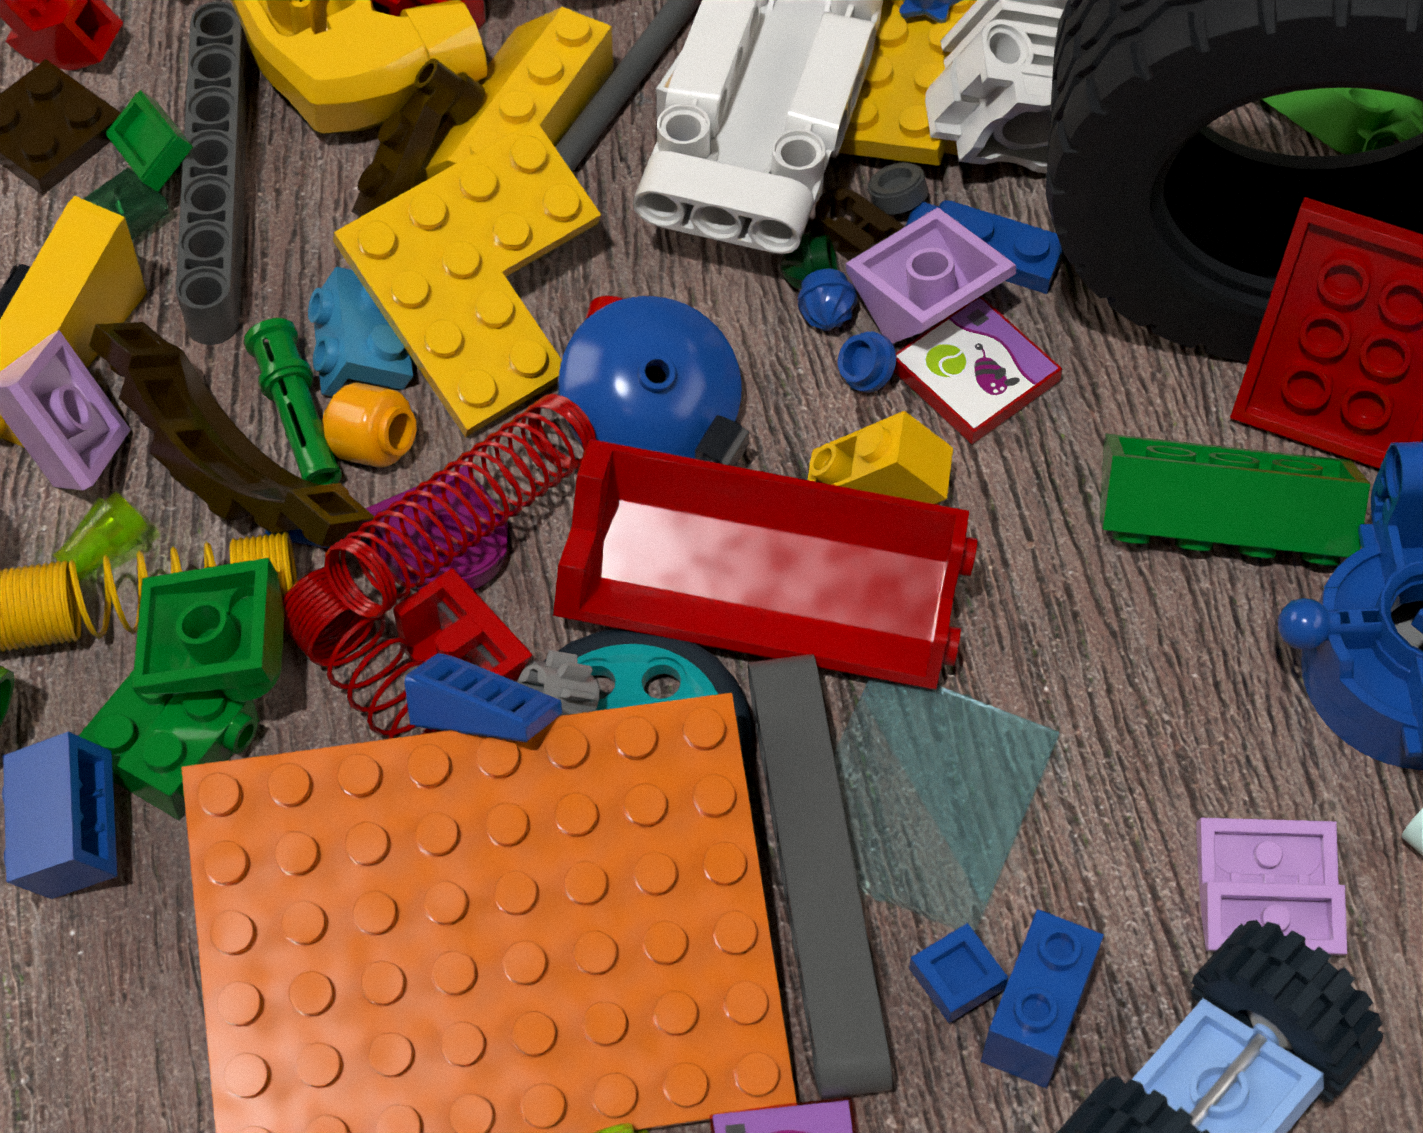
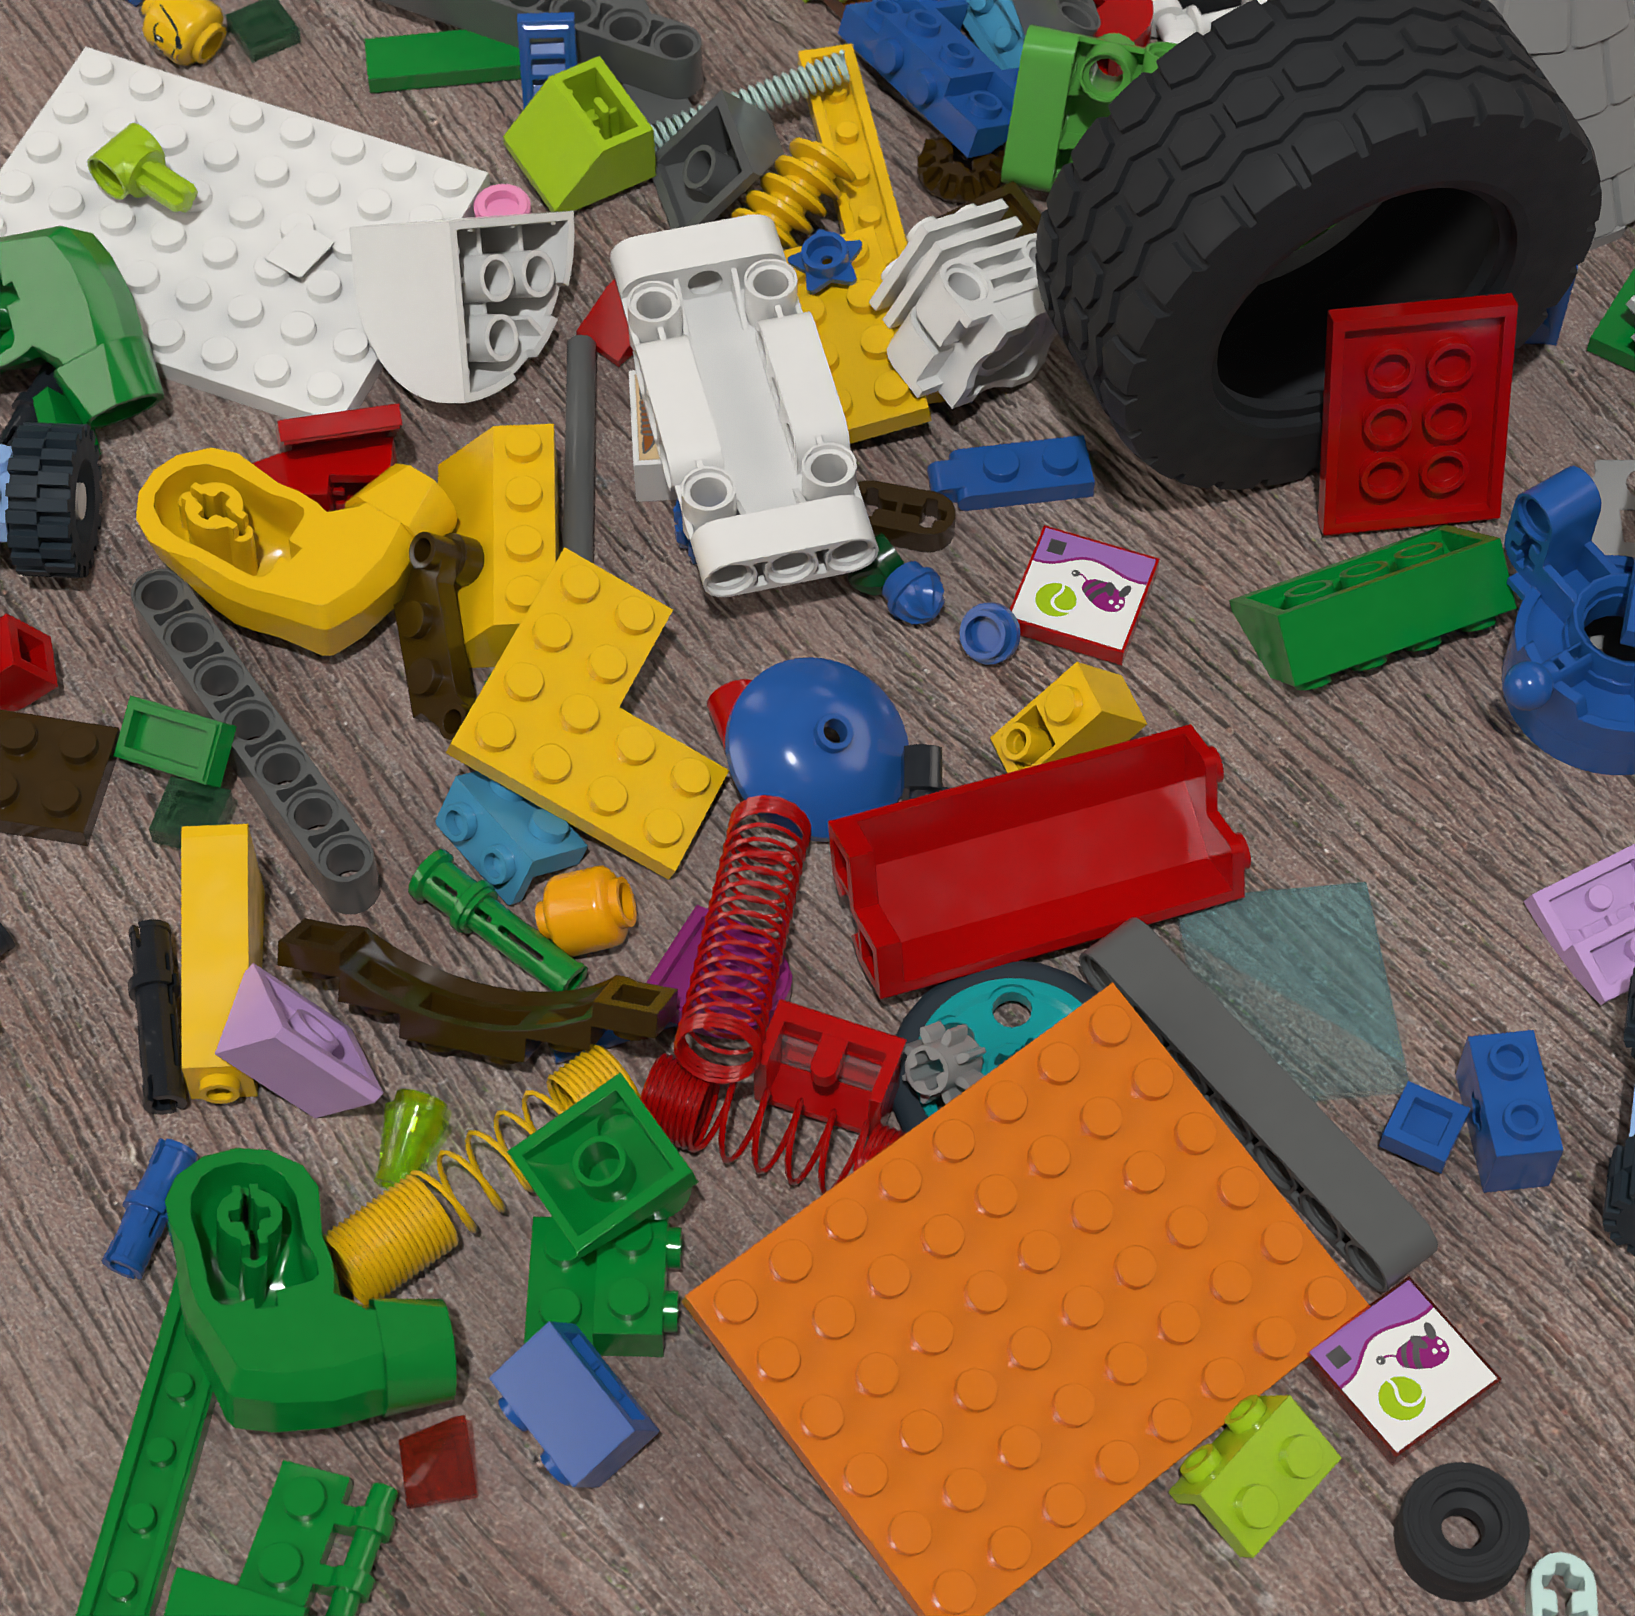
camera: 30 degrees left, 0 degrees up
(472, 700) = (904, 1103): blue slope -> none
(898, 188) = (904, 458): dark grey tile -> none
(925, 274) = (997, 530): lavender slope -> none

